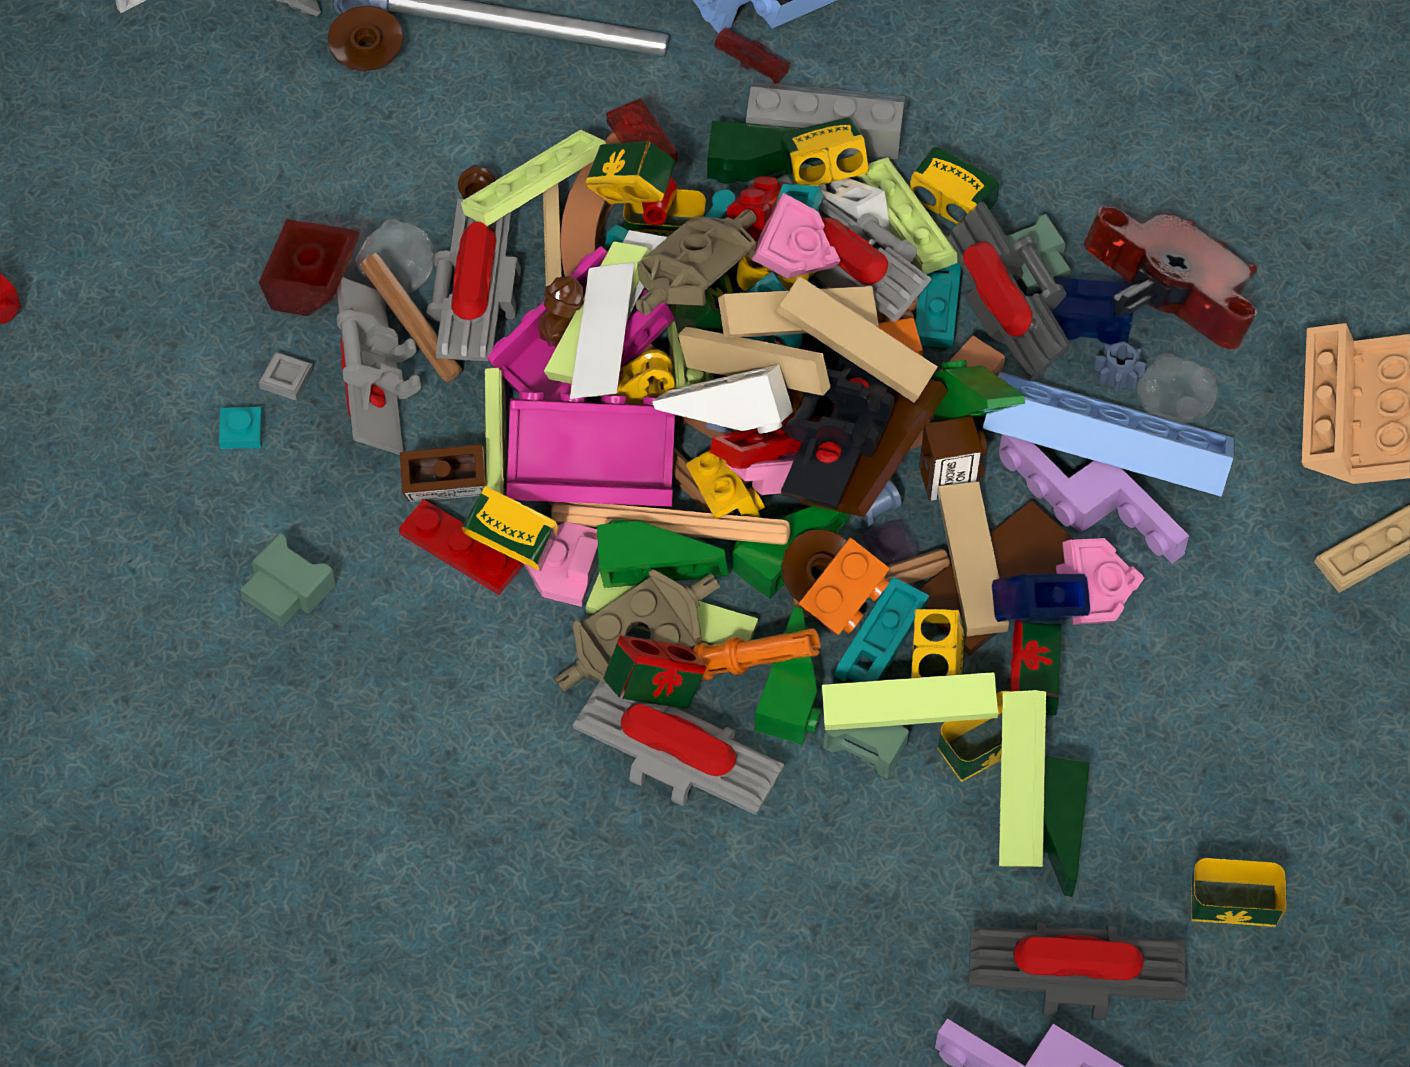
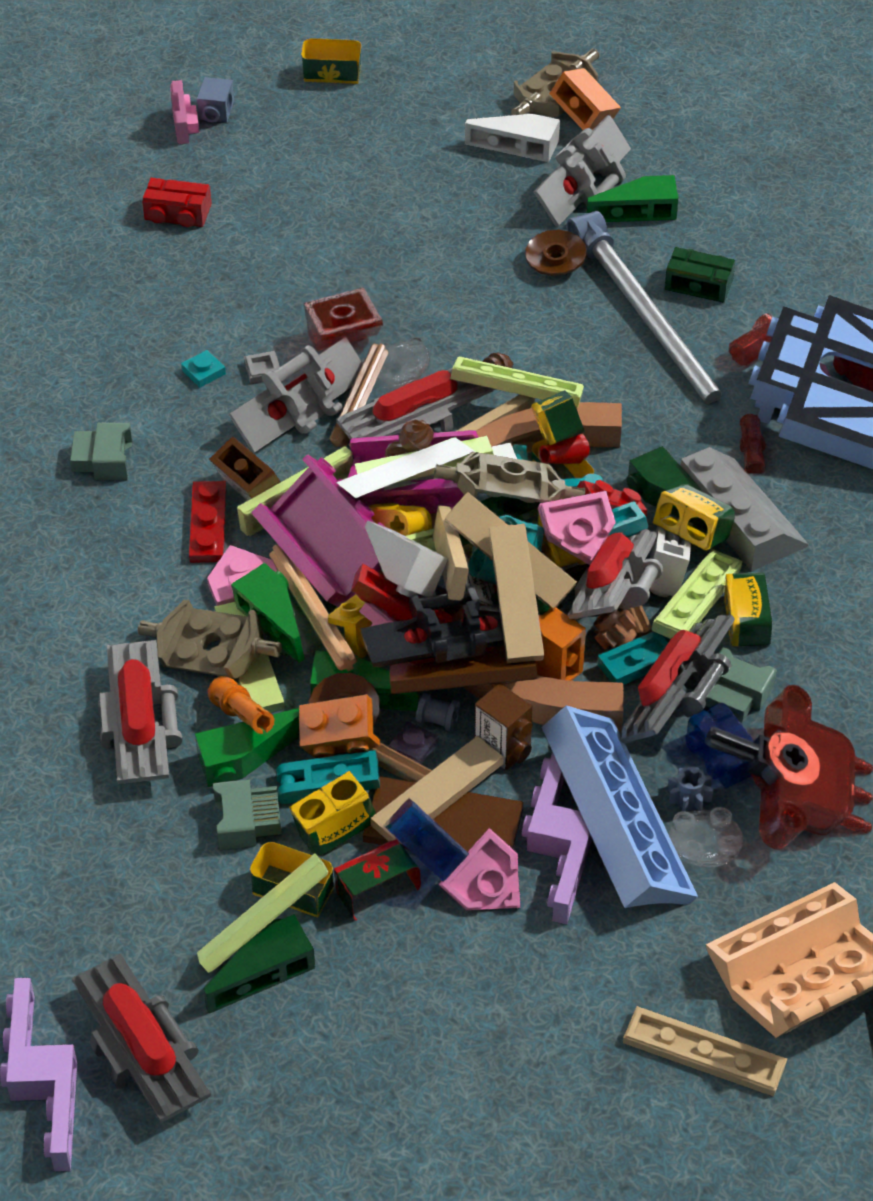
camera: 55 degrees right, 10 degrees down
(511, 528) = (225, 524): piece -> none
(636, 124) = (608, 416): clear red plate -> none
(656, 672) = (179, 661): piece -> none
(909, 701) = (270, 809): yellowish green tile -> none
(973, 392) = (550, 690): green slope -> none
(1239, 872) = (270, 1076): yellow piece -> none

